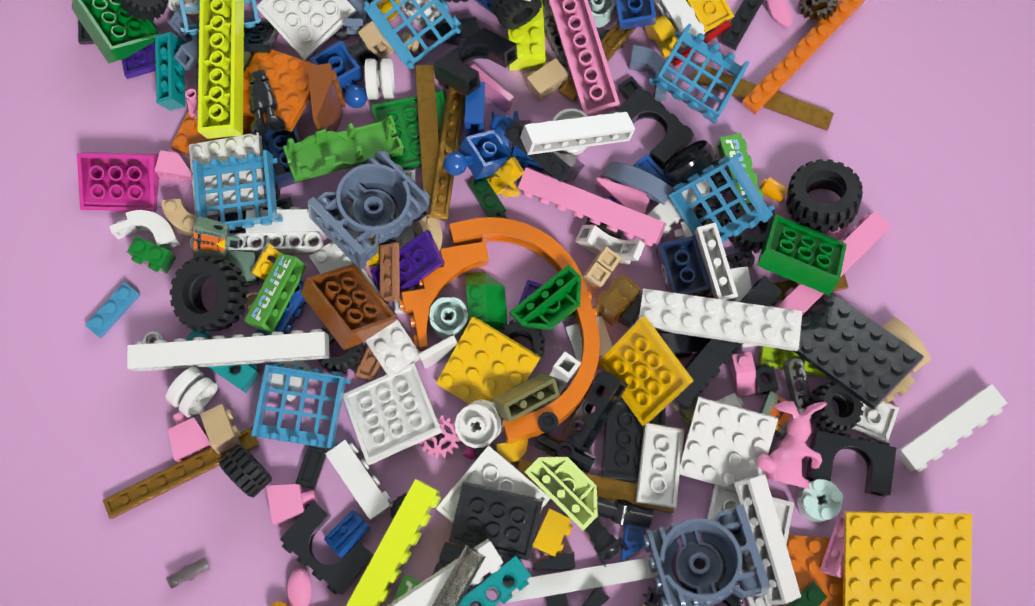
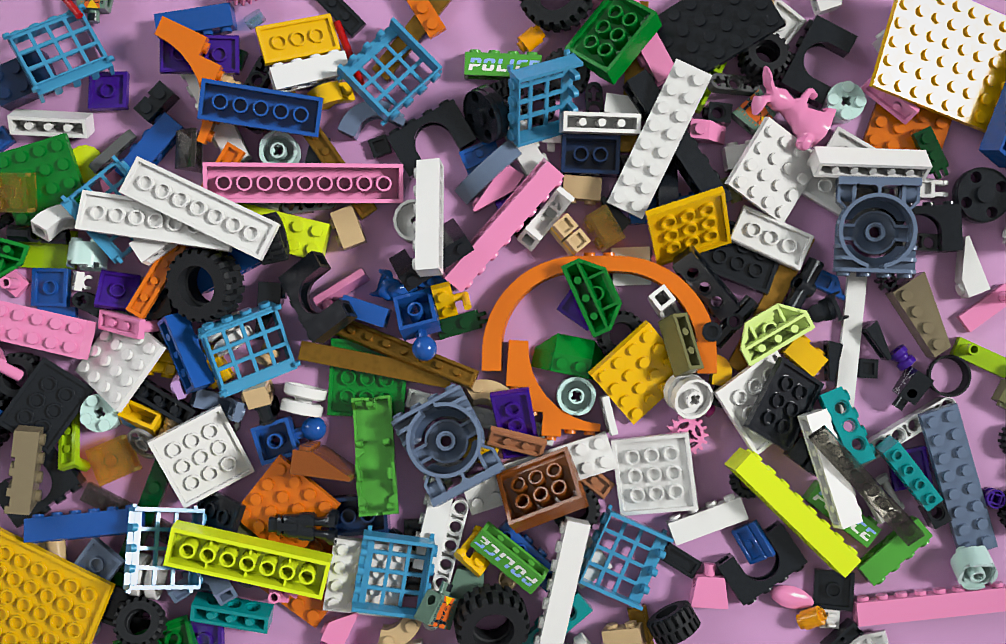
camera: 75 degrees left, 15 degrees up
(649, 271) = (583, 188): none -> tan brick

